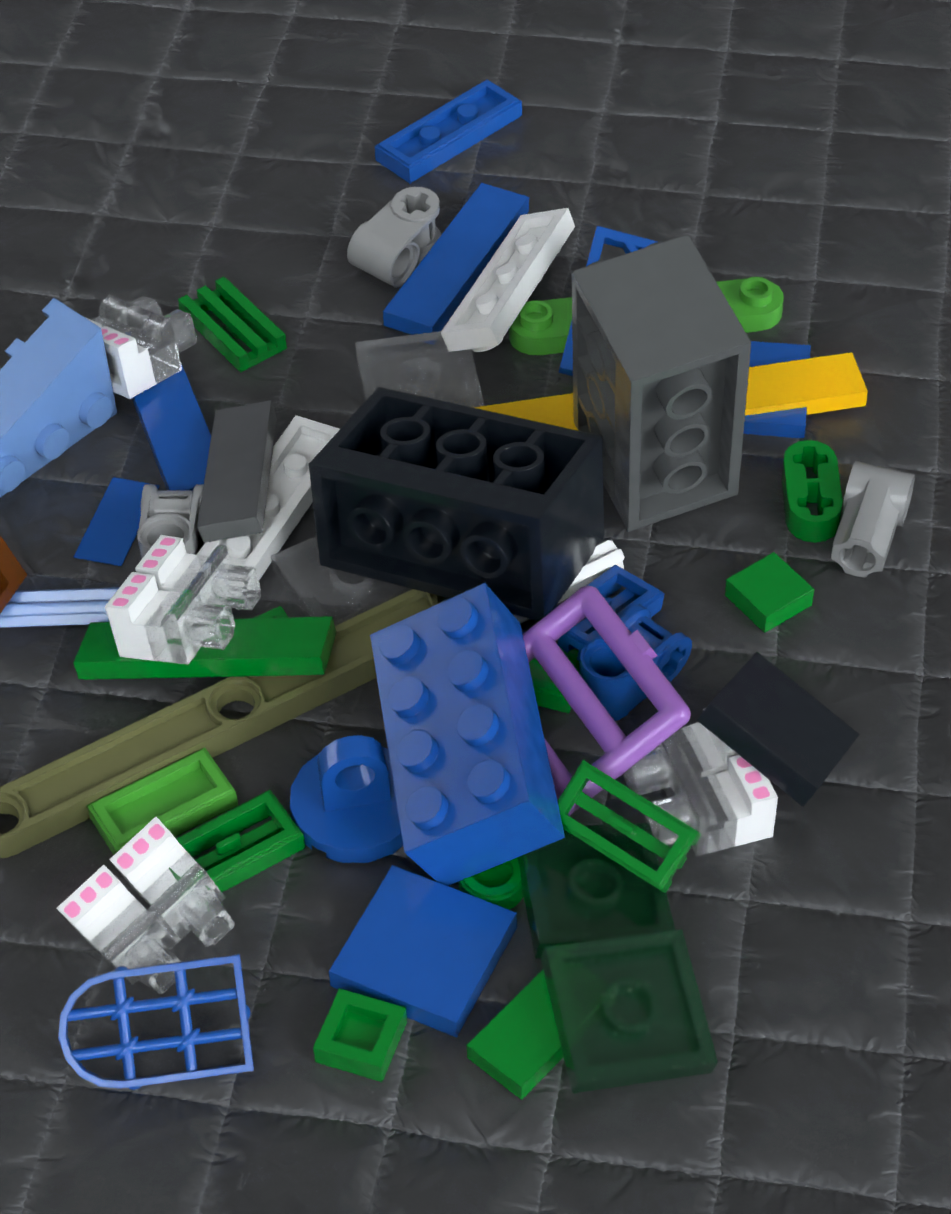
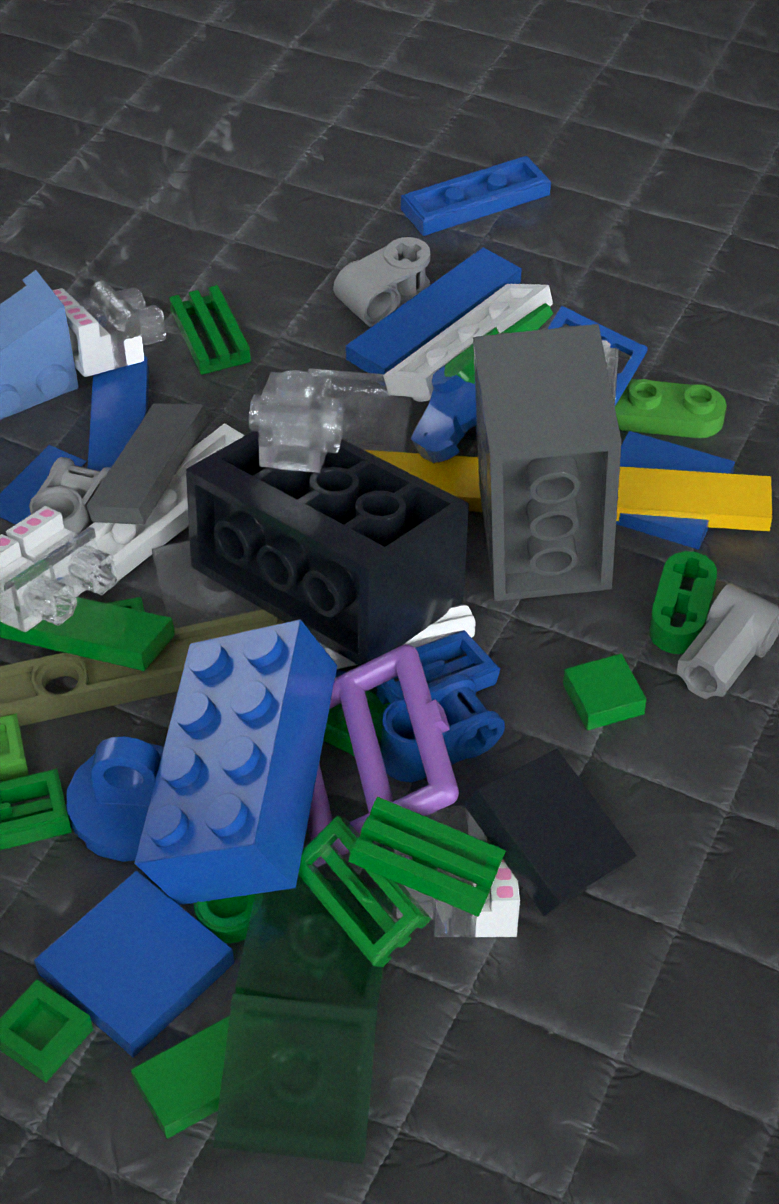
camera: 15 degrees right, 0 degrees up
(408, 392) = (296, 421): none -> clear brick
(537, 327) = (453, 400): none -> blue animal
(683, 767) = (431, 847): none -> green tile

